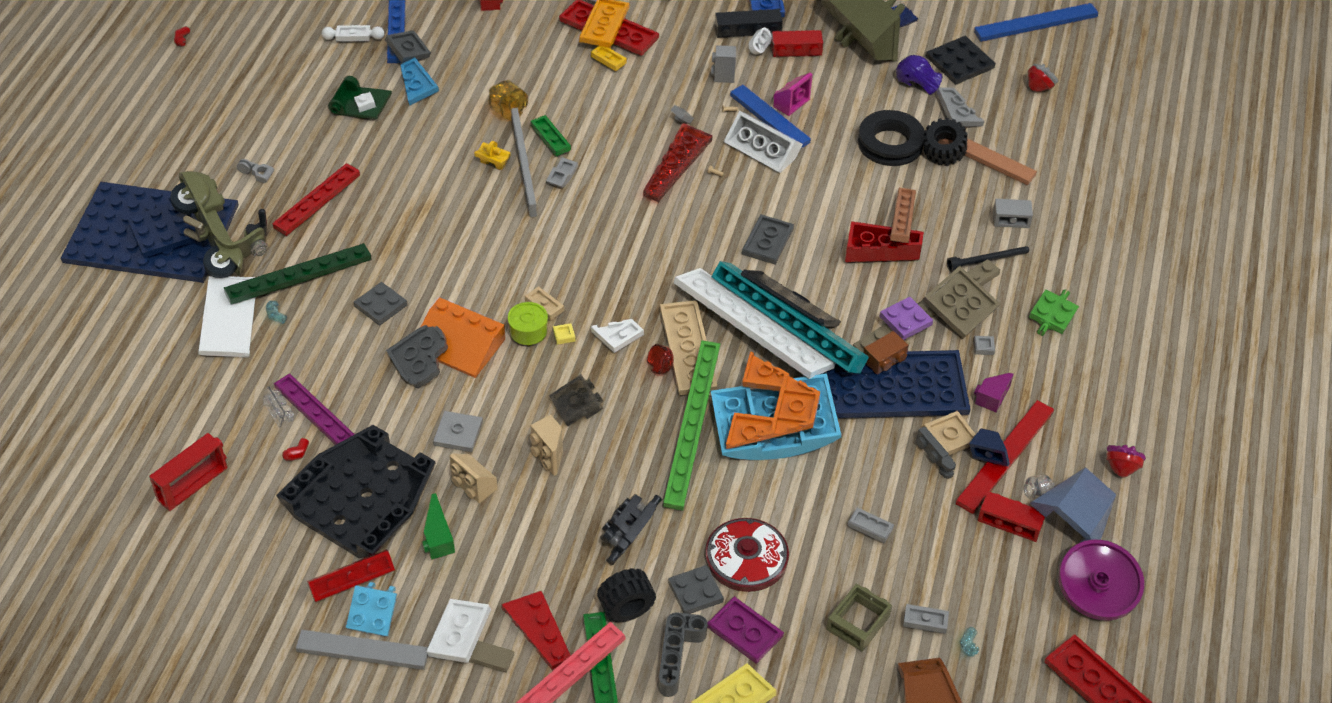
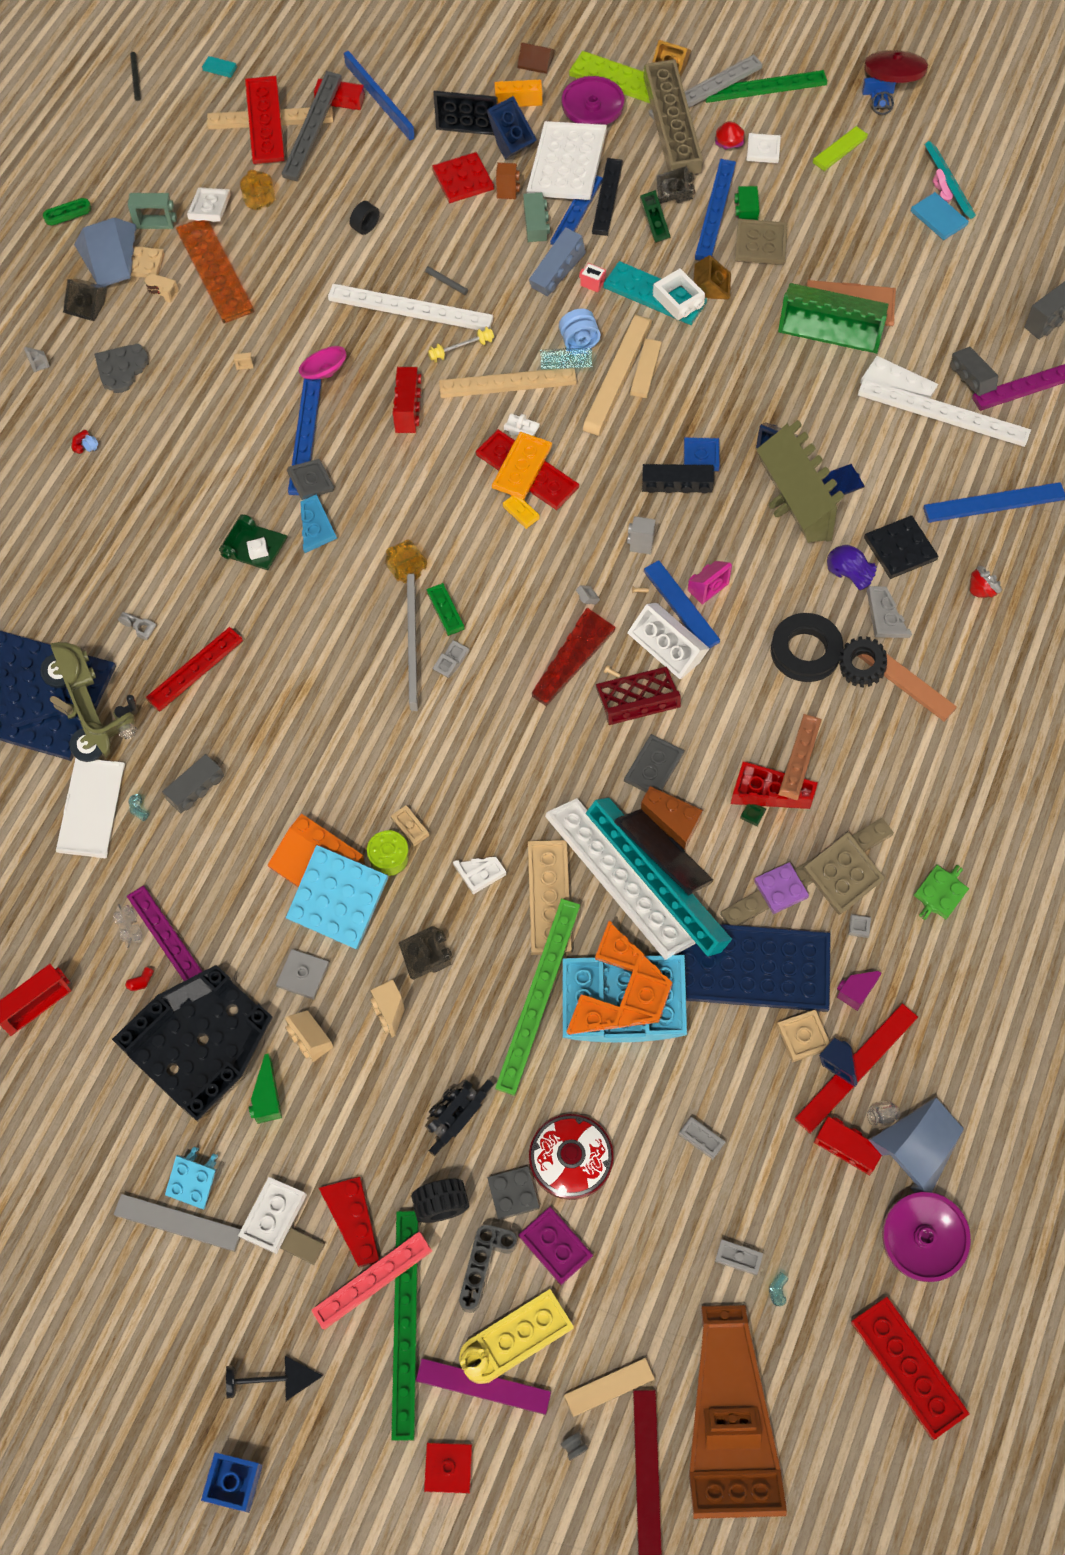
camera: 10 degrees right, 15 degrees up
(191, 36) = (90, 443): none -> light blue plate
(297, 273) = (164, 762): dark green plate -> none
(328, 287) = (193, 784): none -> dark grey brick
(350, 575) = (175, 1137): red plate -> none
(353, 33) = (256, 454): white plate -> none
(380, 303) = (244, 807): dark grey plate -> none
(418, 354) = (272, 879): dark grey plate -> none
(483, 361) = (337, 897): none -> medium azure plate
(493, 154) = (381, 630): yellow hips -> none
(564, 333) = (425, 864): light yellow tile -> none
(660, 358) = (519, 911): clear red hair -> none
(744, 194) = (642, 706): none -> dark red fence
(760, 41) = (685, 506): white plate -> none
(792, 271) = (672, 815): none -> dark orange wedge
(797, 43) = (725, 510): red brick -> none
(851, 633) = (655, 1263): olive window -> none
(867, 268) = (753, 814): none -> dark green tile
(886, 352) = (751, 932): dark orange brick -> none
(936, 452) = (783, 1058): dark grey hinge -> none
(954, 262) = (846, 819): black piece -> none
(1012, 213) = (920, 760): light grey brick -> none
(1124, 460) = (979, 1092): red hair -> none

